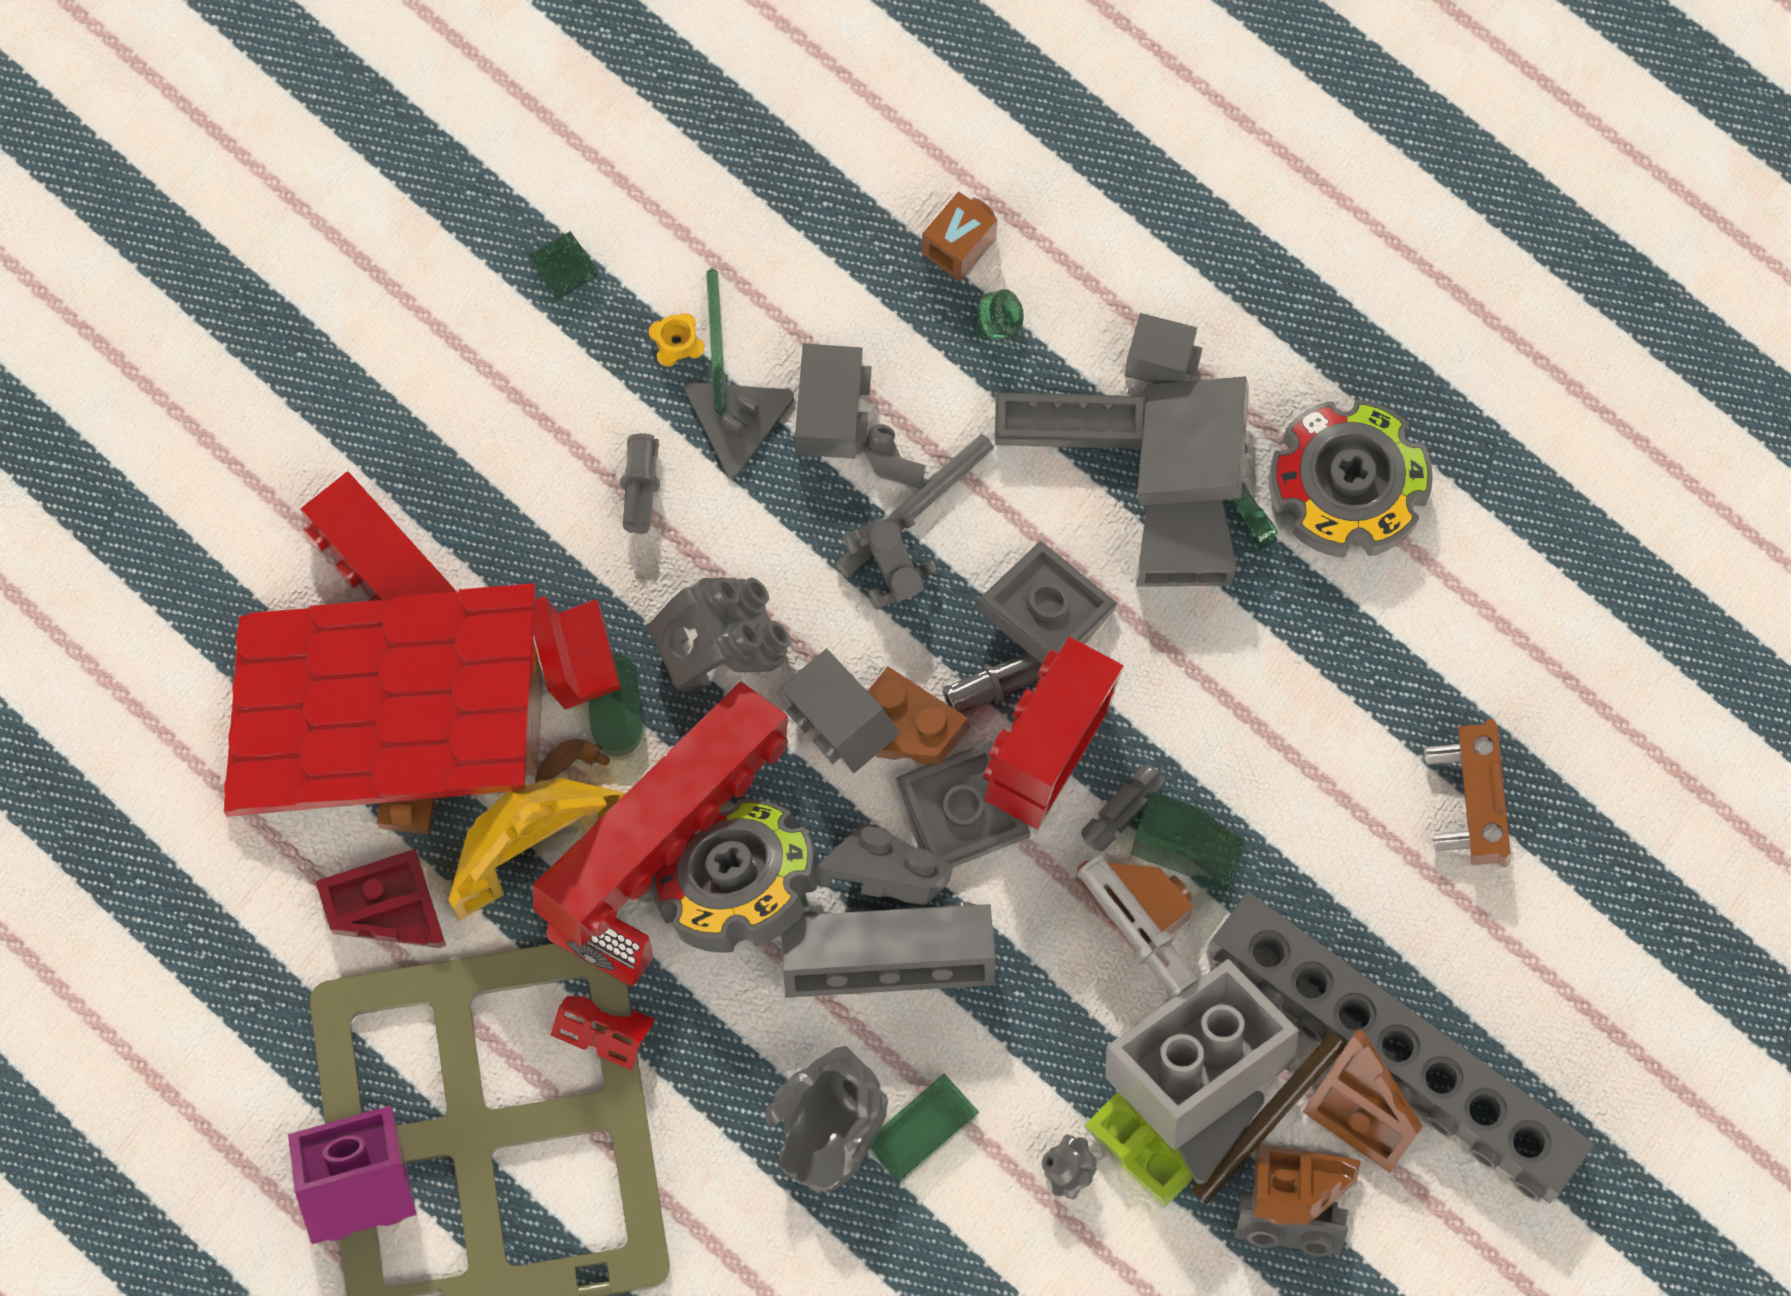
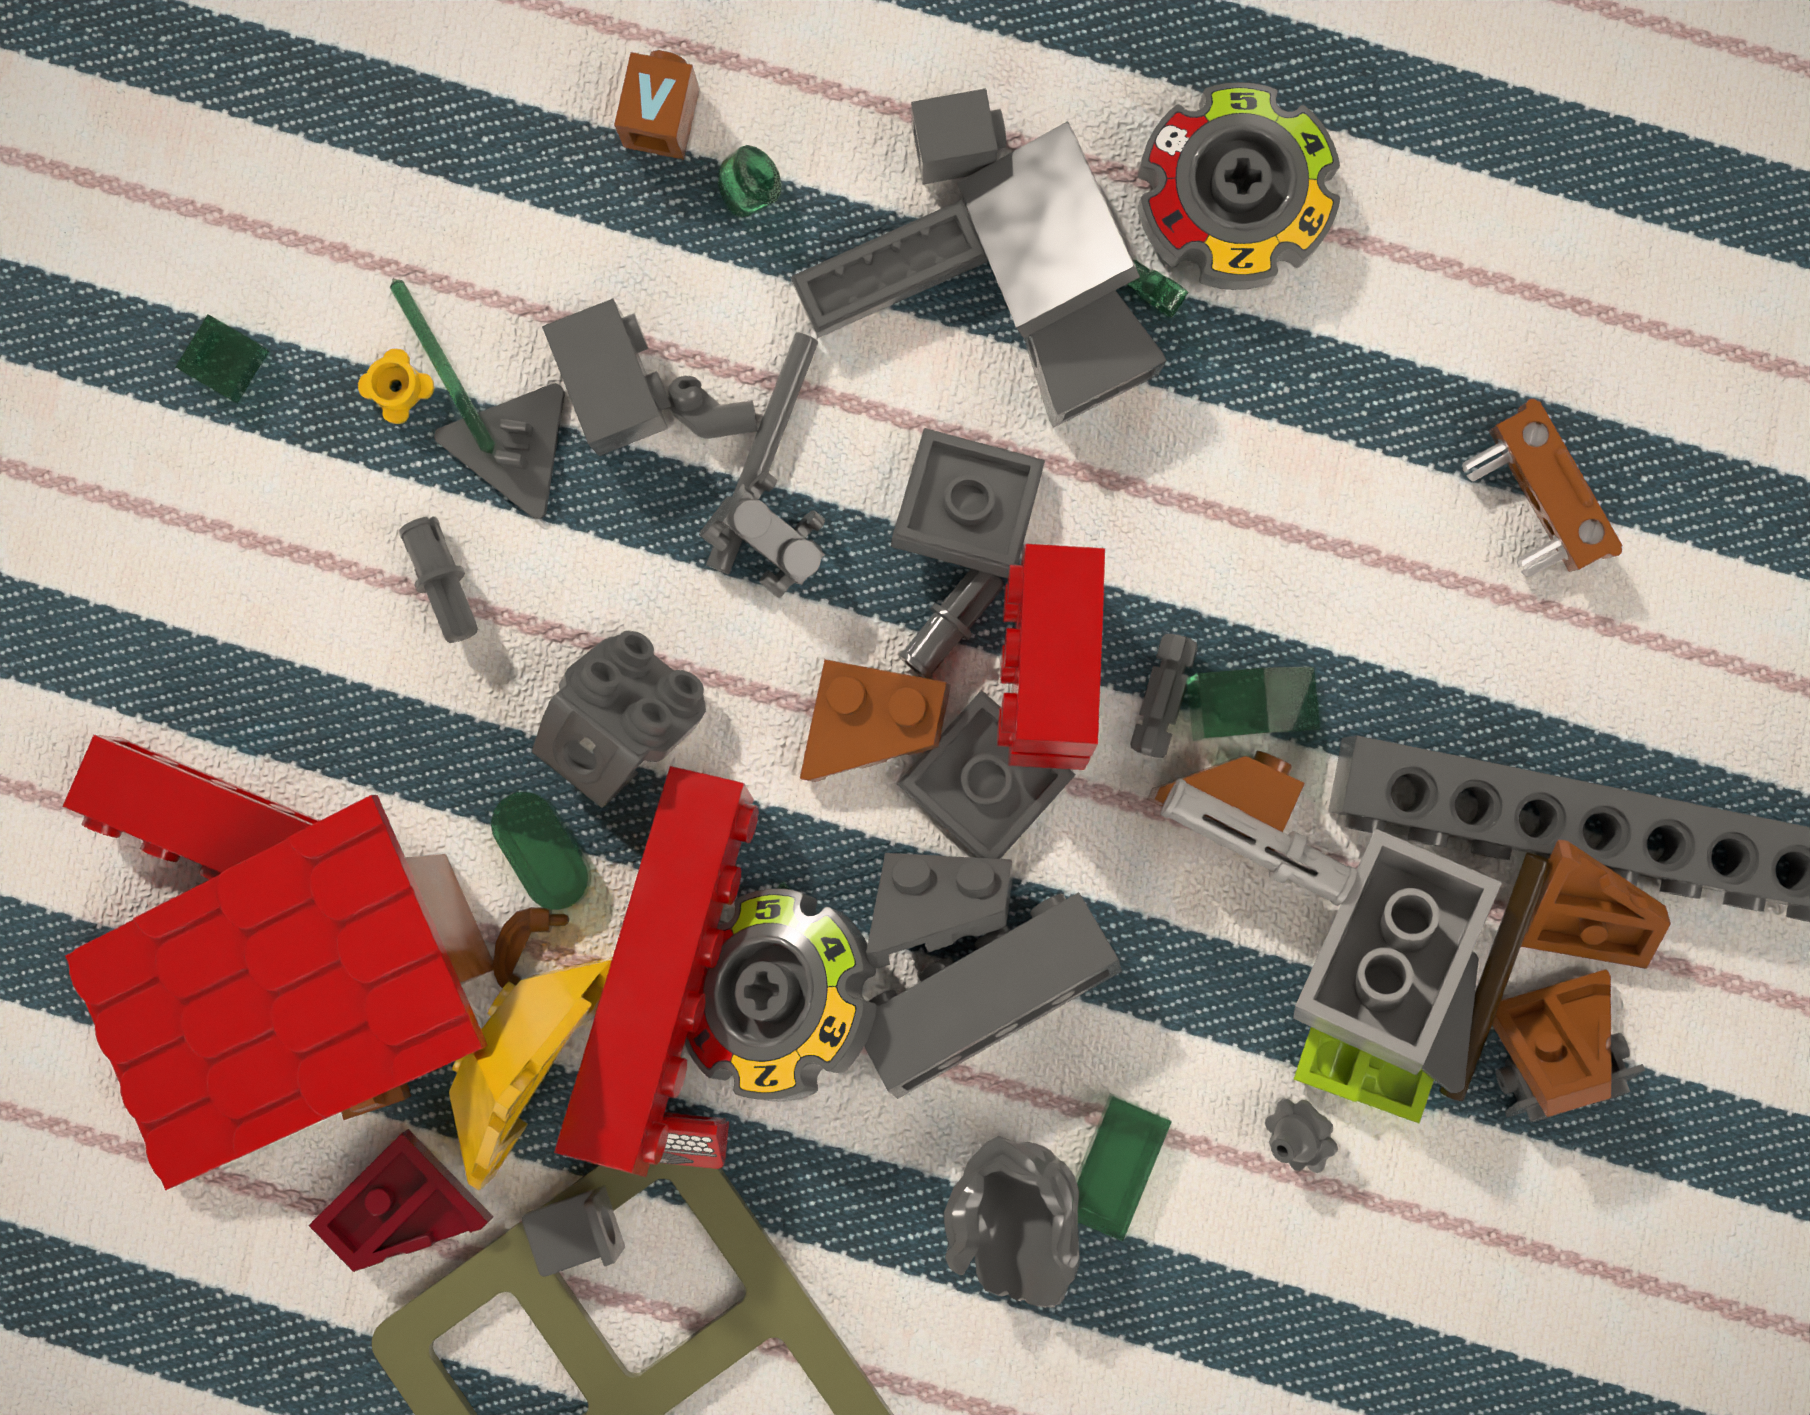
camera: 20 degrees left, 15 degrees up
(502, 976) = (574, 1232): none -> dark grey bracket
(574, 652) = (461, 818): red panel -> none
(632, 1027) = (743, 1220): red piece -> none
(839, 711) = (798, 748): dark grey brick -> none

